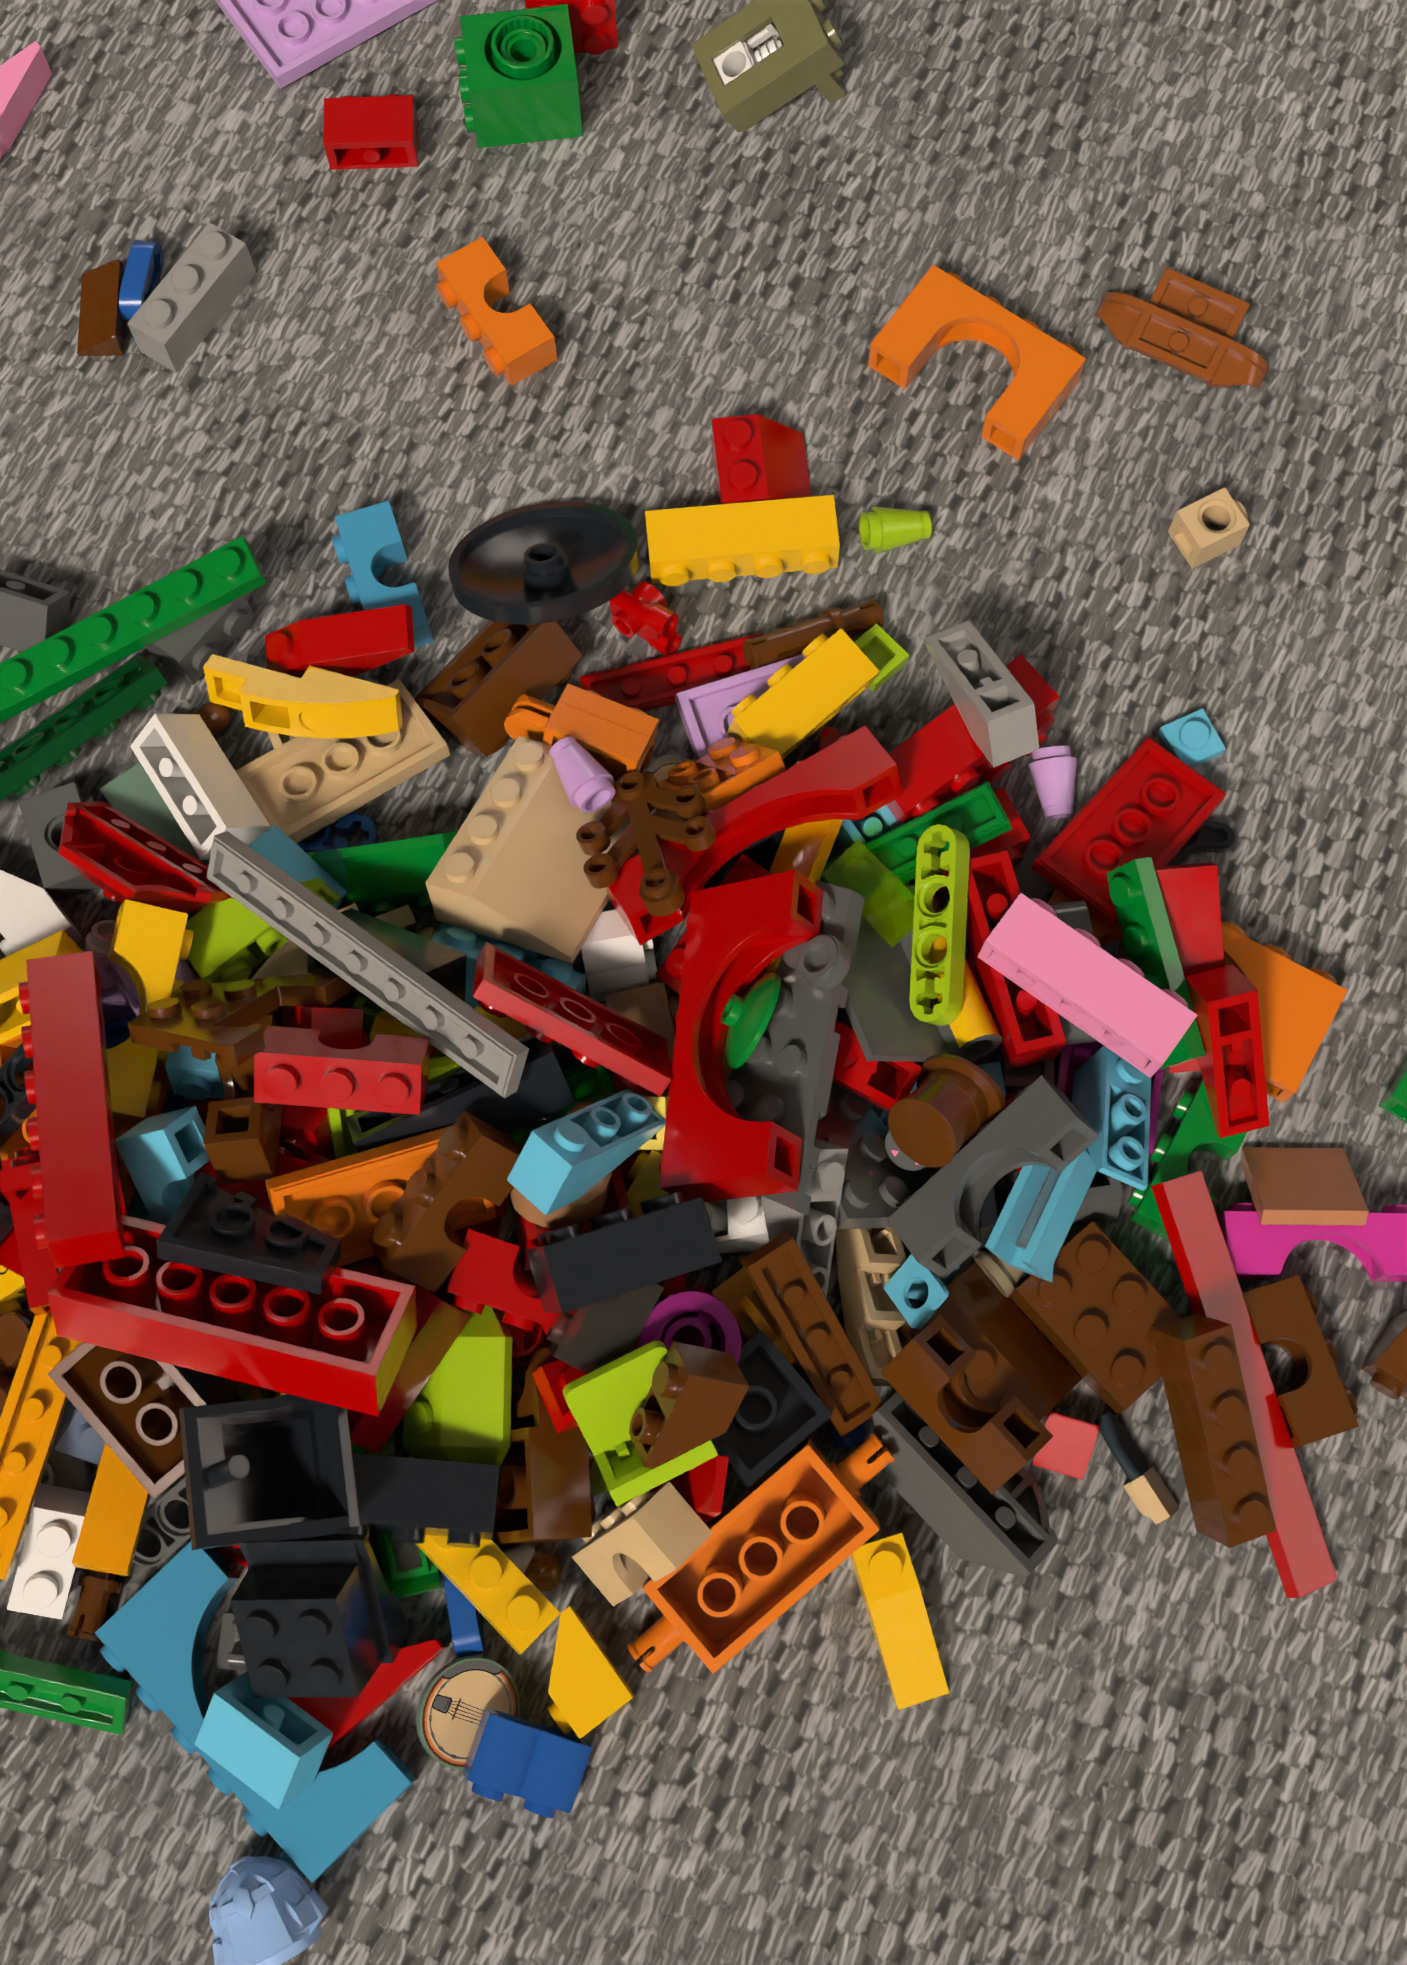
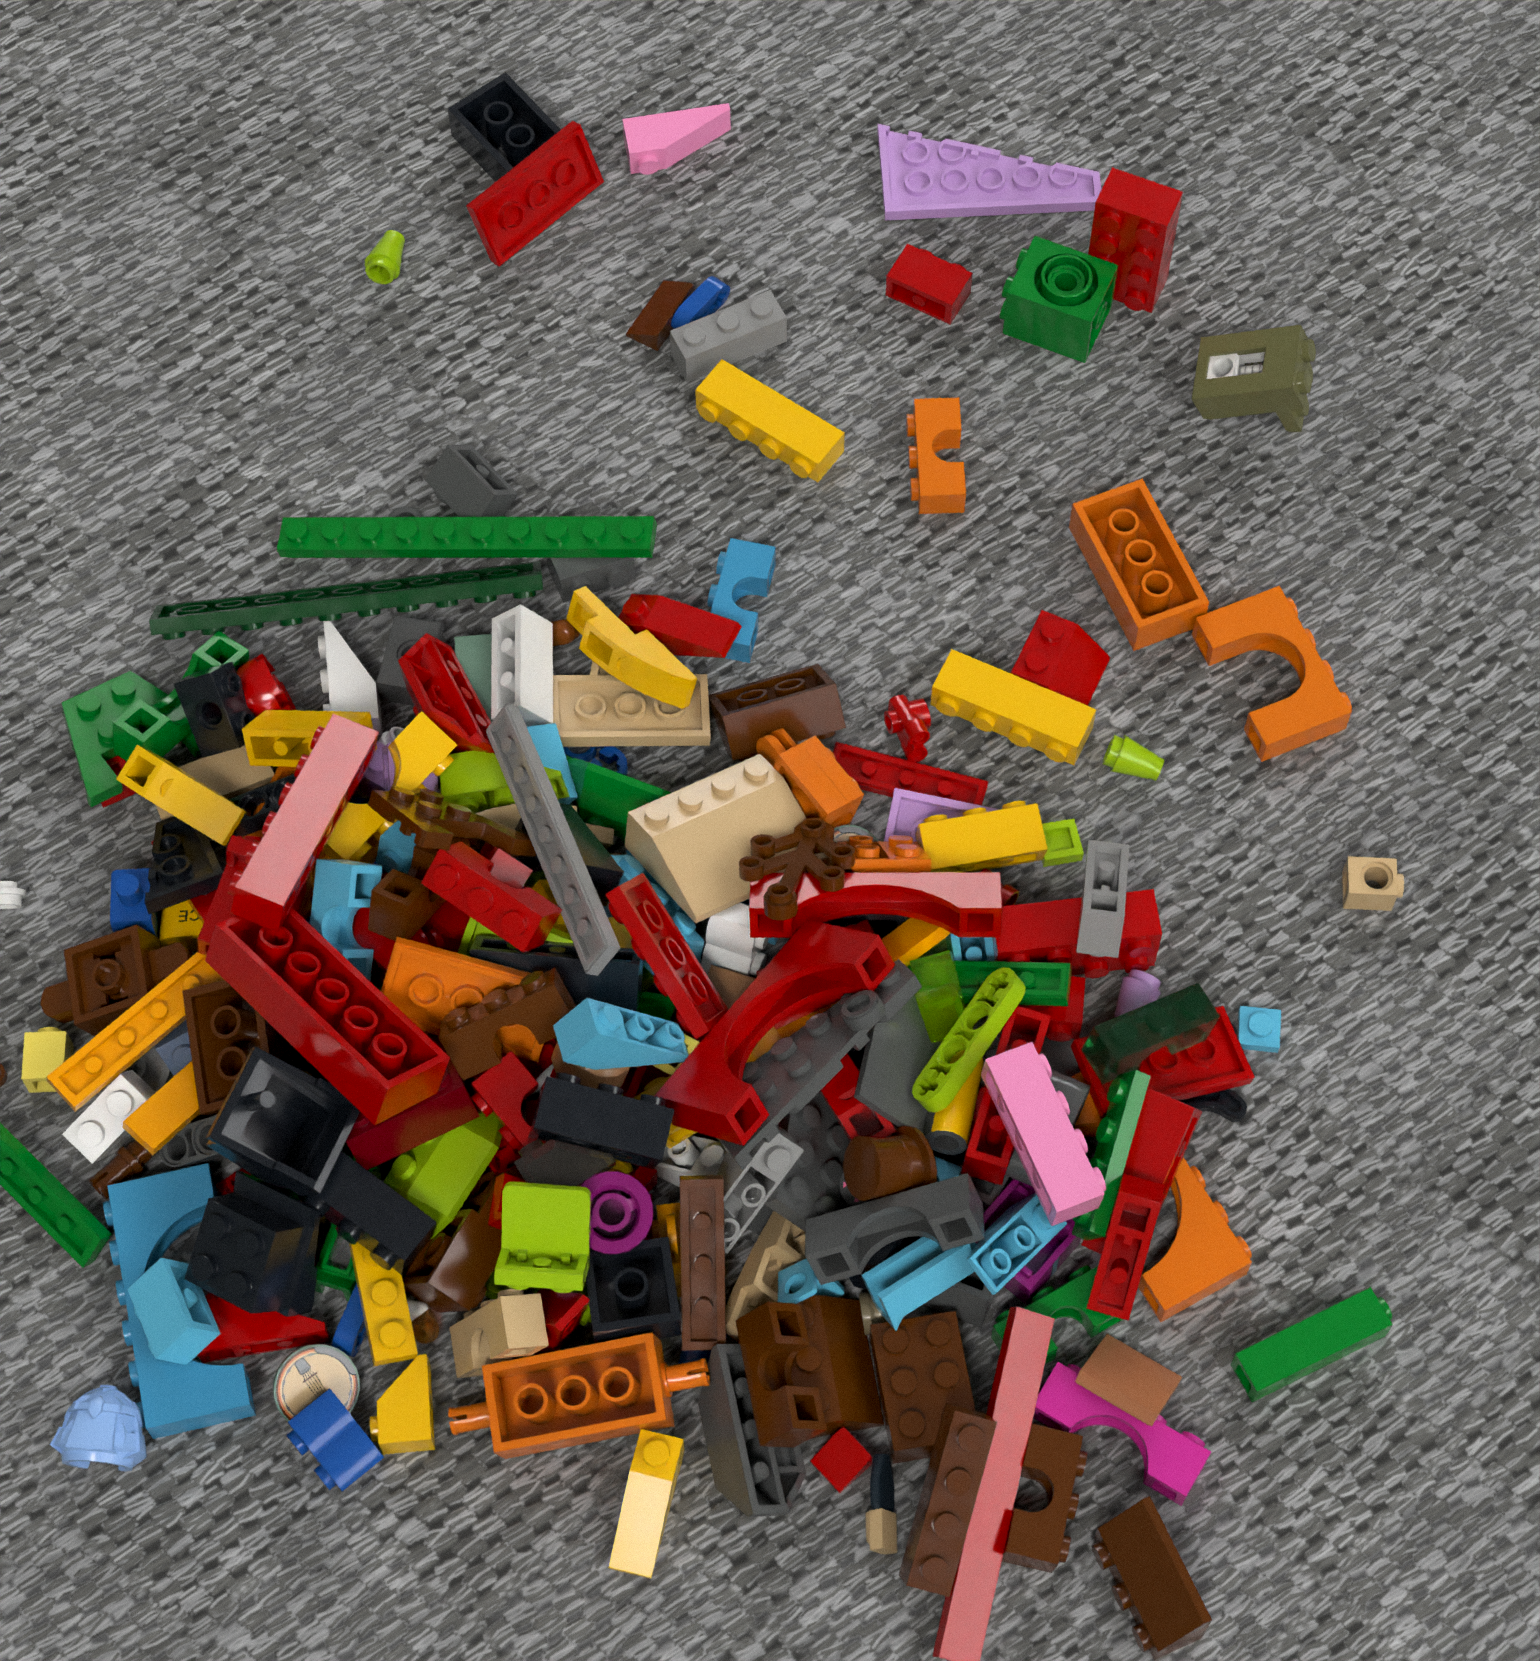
camera: 30 degrees right, 10 degrees down
(242, 1240) = (360, 966): black wing -> none
(293, 367) = (769, 421): none -> yellow brick
(544, 562) = (857, 646): black dish -> none
(582, 777) = (782, 802): lavender cone -> none
(688, 1403) = (582, 1243): reddish brown slope -> none
(749, 1018) = (788, 1019): green dish -> none
(775, 317) = (1138, 564): none -> orange brick
(795, 638) = (997, 795): reddish brown pin -> none
(1111, 809) = (1170, 1021): none -> clear green arch
(1187, 330) = (1449, 734): dark orange plate -> none

